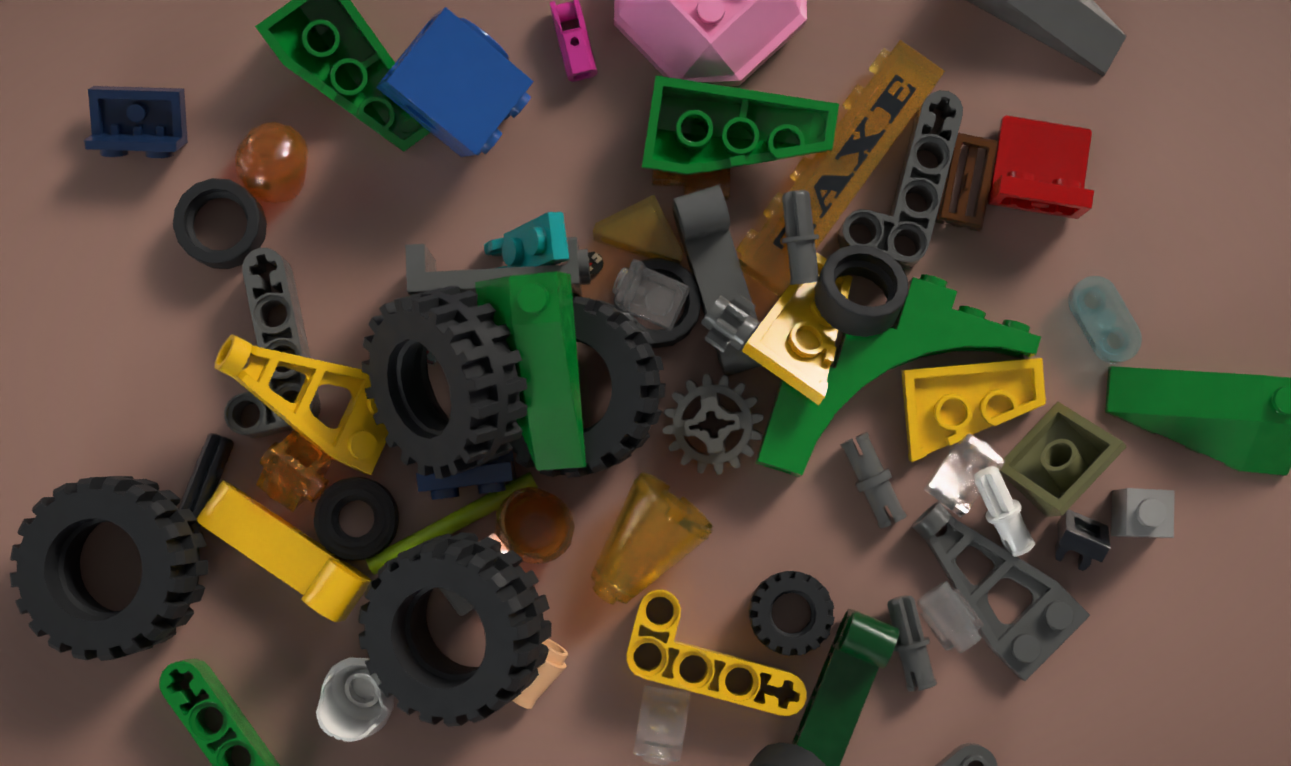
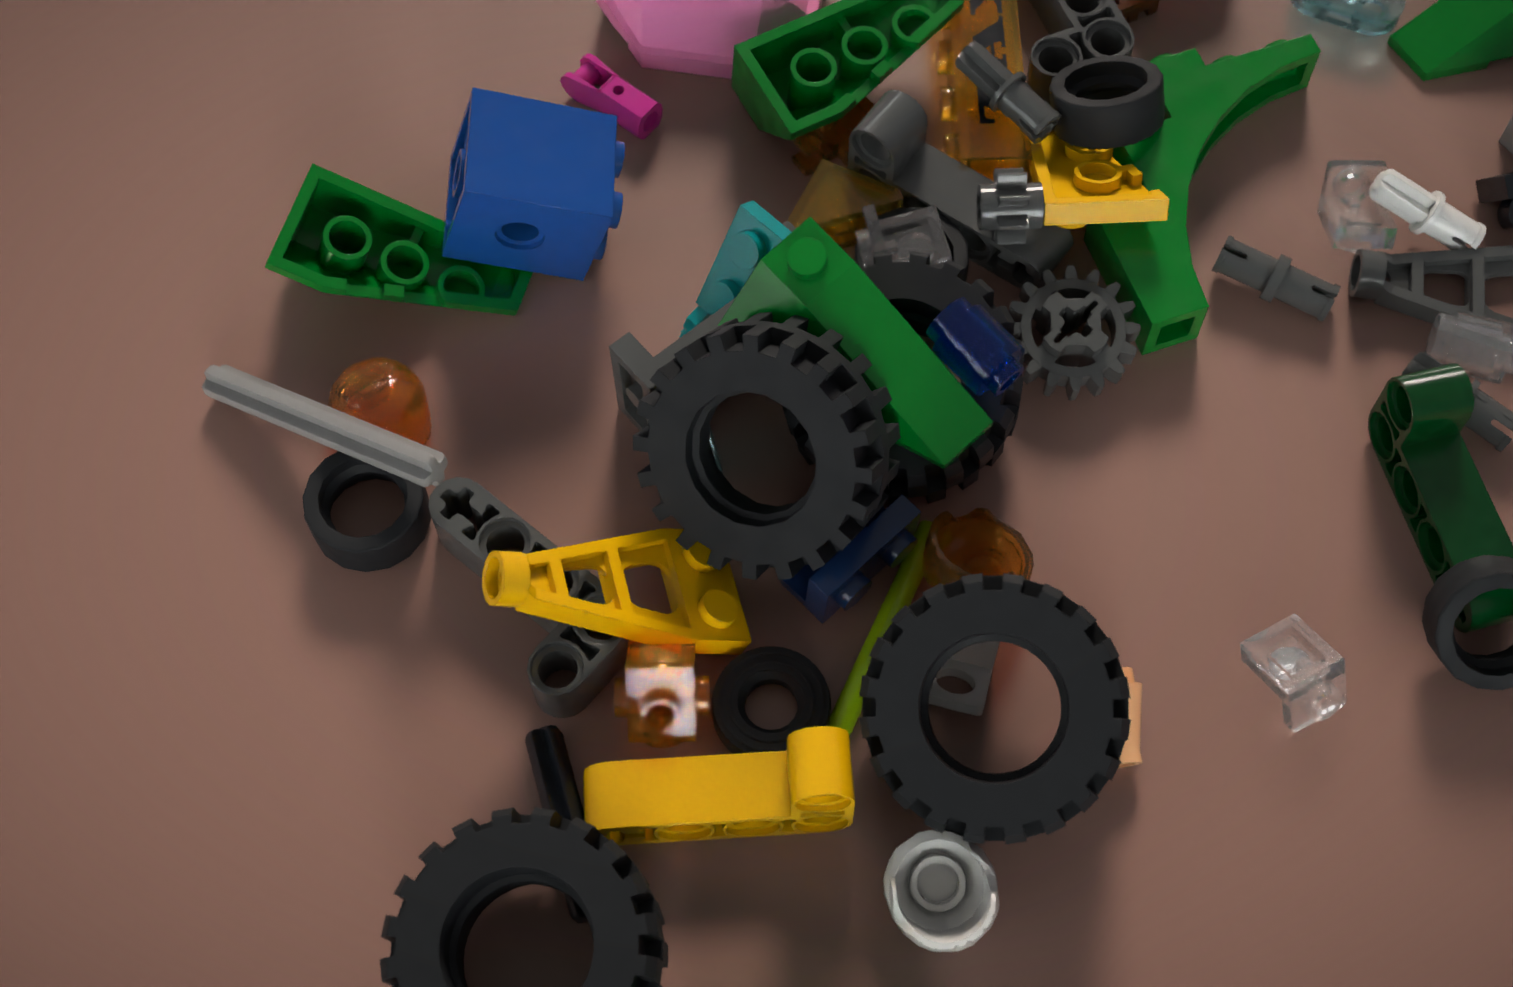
camera: 35 degrees left, 20 degrees down
(137, 121) = (187, 465): dark blue bracket -> none
(223, 157) = (326, 425): none -> light grey axle
(602, 420) = (976, 347): none -> clear blue brick
(647, 539) = (1110, 483): clear yellow cone -> none
(717, 665) = (1291, 562): yellow beam -> none
(820, 620) = (1336, 431): black tyre -> none
(964, 399) = (1283, 153): yellow wing -> none
(1060, 459) = (1438, 129): olive slope -> none

